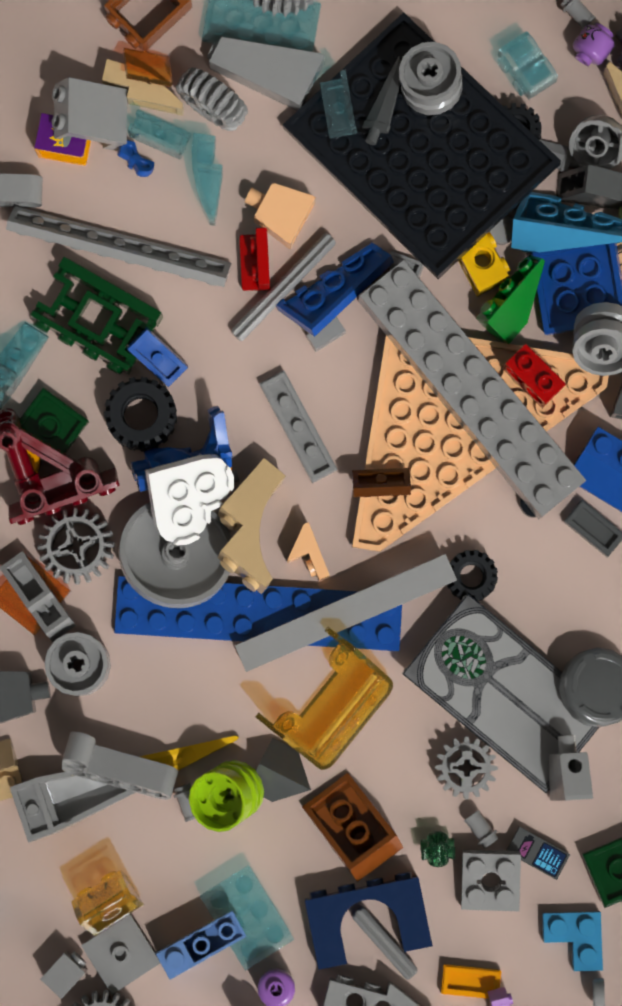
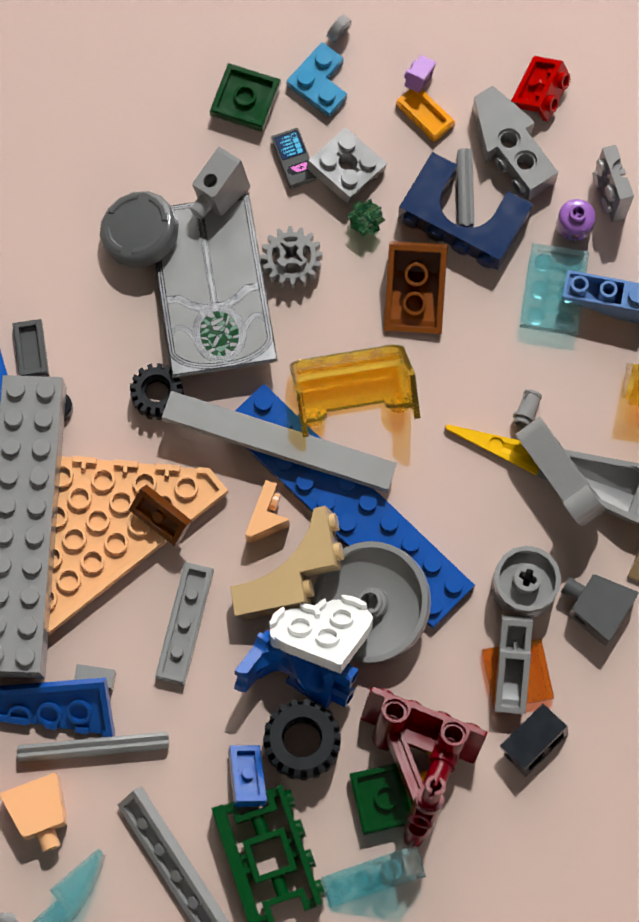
camera: 135 degrees left, 10 degrees down
(89, 541) = (460, 684): light grey gear -> none
(226, 795) = (494, 381): lime wheel -> none
(255, 261) = (96, 786): red bracket -> none
(282, 772) = (438, 370): dark grey slope -> none
(481, 829) = (320, 206): light grey pin -> none

